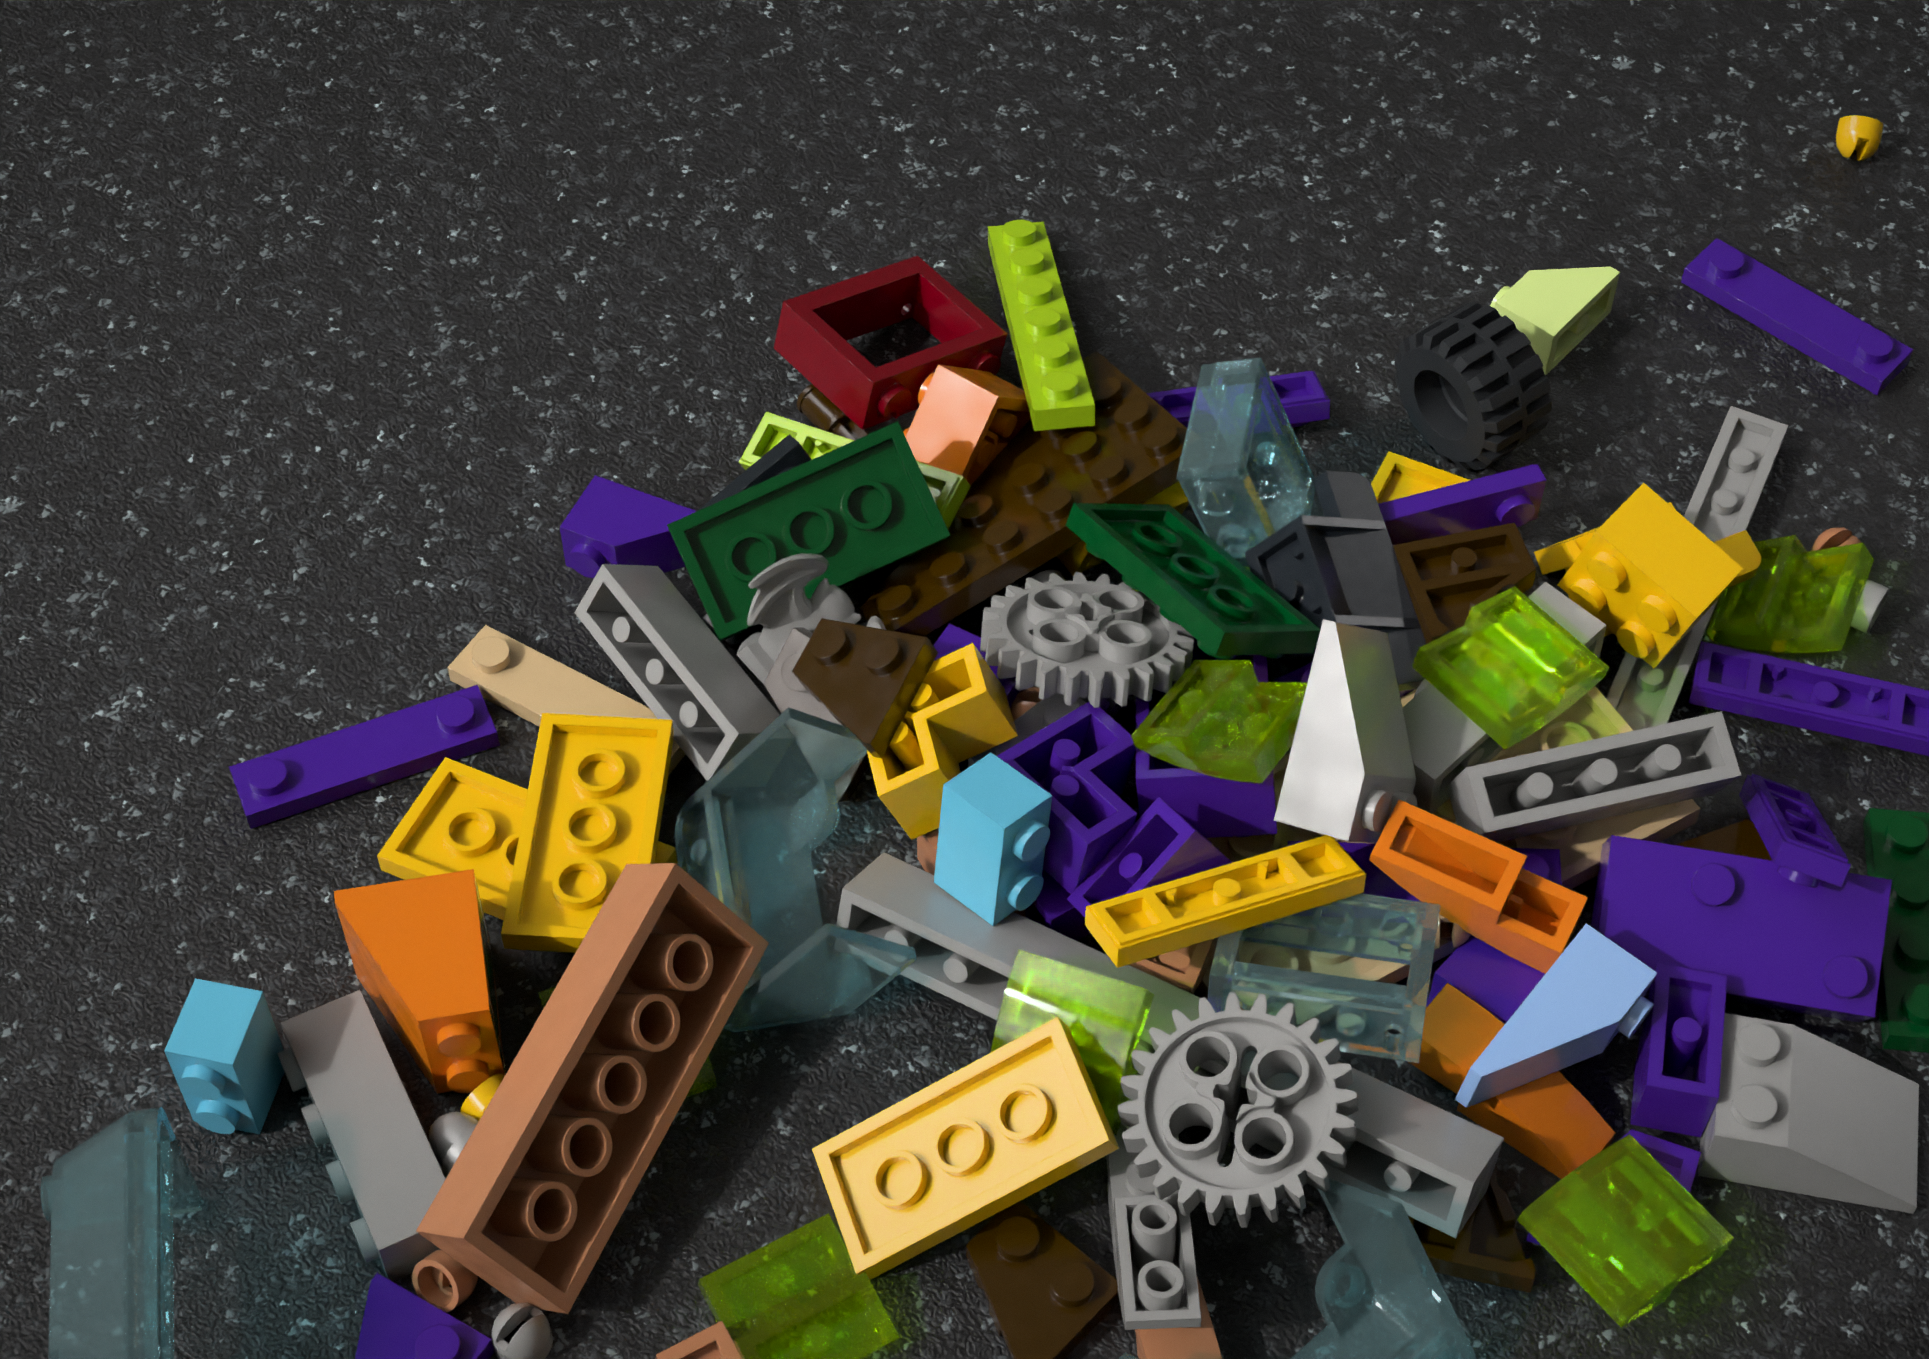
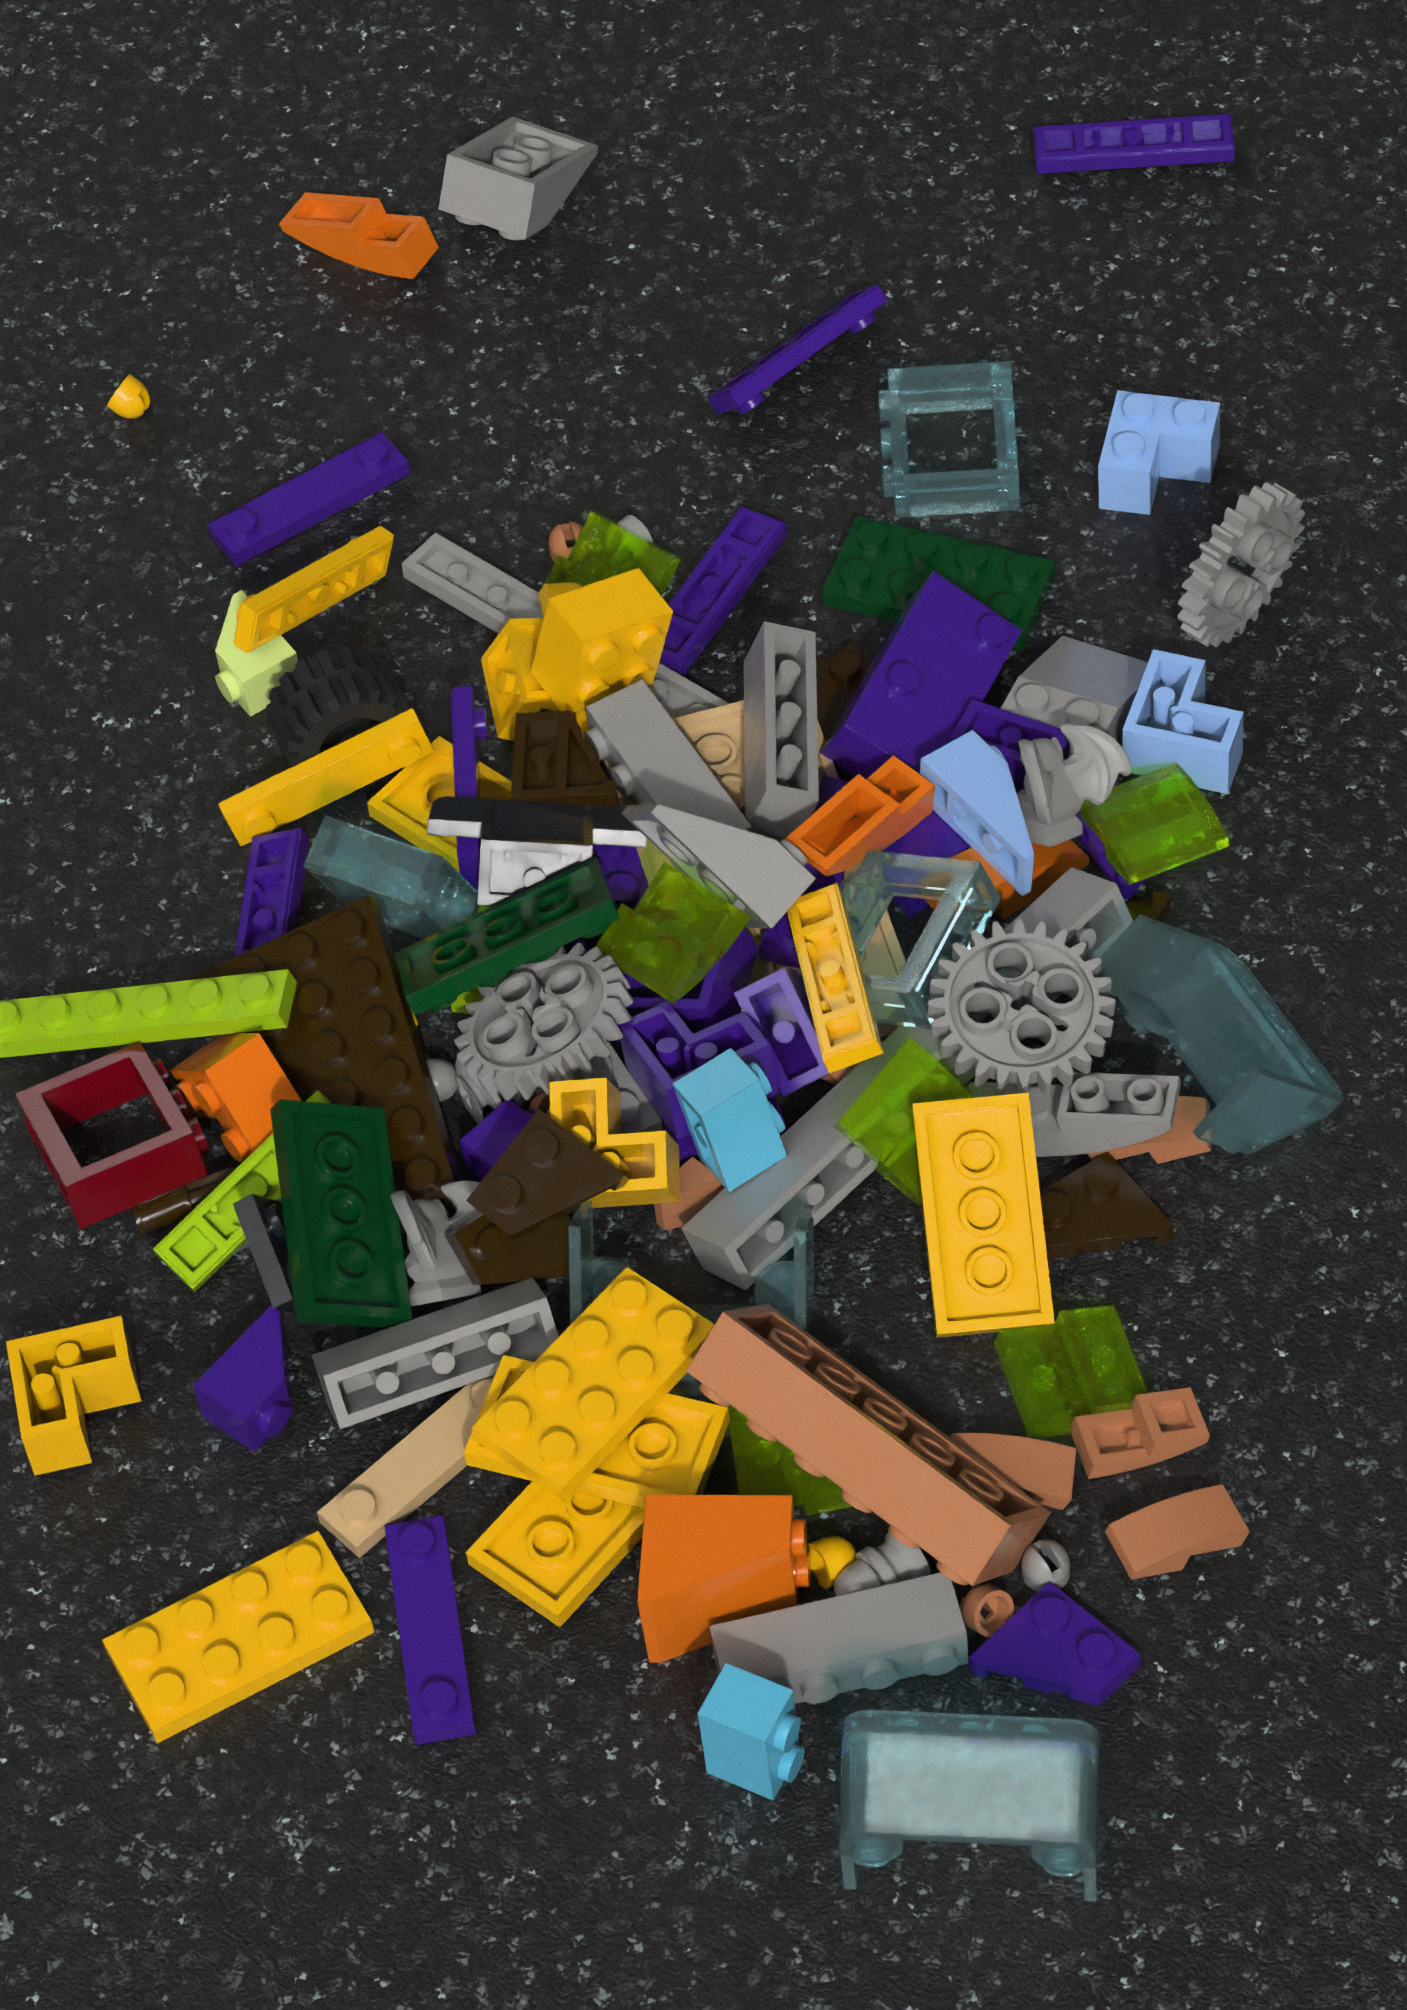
camera: 70 degrees left, 0 degrees up
(340, 602) = (238, 1636): none -> yellow plate
(578, 375) = (61, 1379): none -> yellow brick
(639, 803) = (593, 1384): none -> yellow plate
(644, 1271) = (1032, 1465): none -> nougat slope
(1402, 404) = (326, 777): none -> yellow plate
(1510, 667) = (669, 746): clear neon green slope -> none
(1616, 1094) = (1059, 786): none -> light grey animal
(1642, 326) = (313, 589): none -> yellow plate
(1794, 833) = (876, 616): dark purple plate -> none
(1797, 1222) = (1175, 724): none -> light blue brick

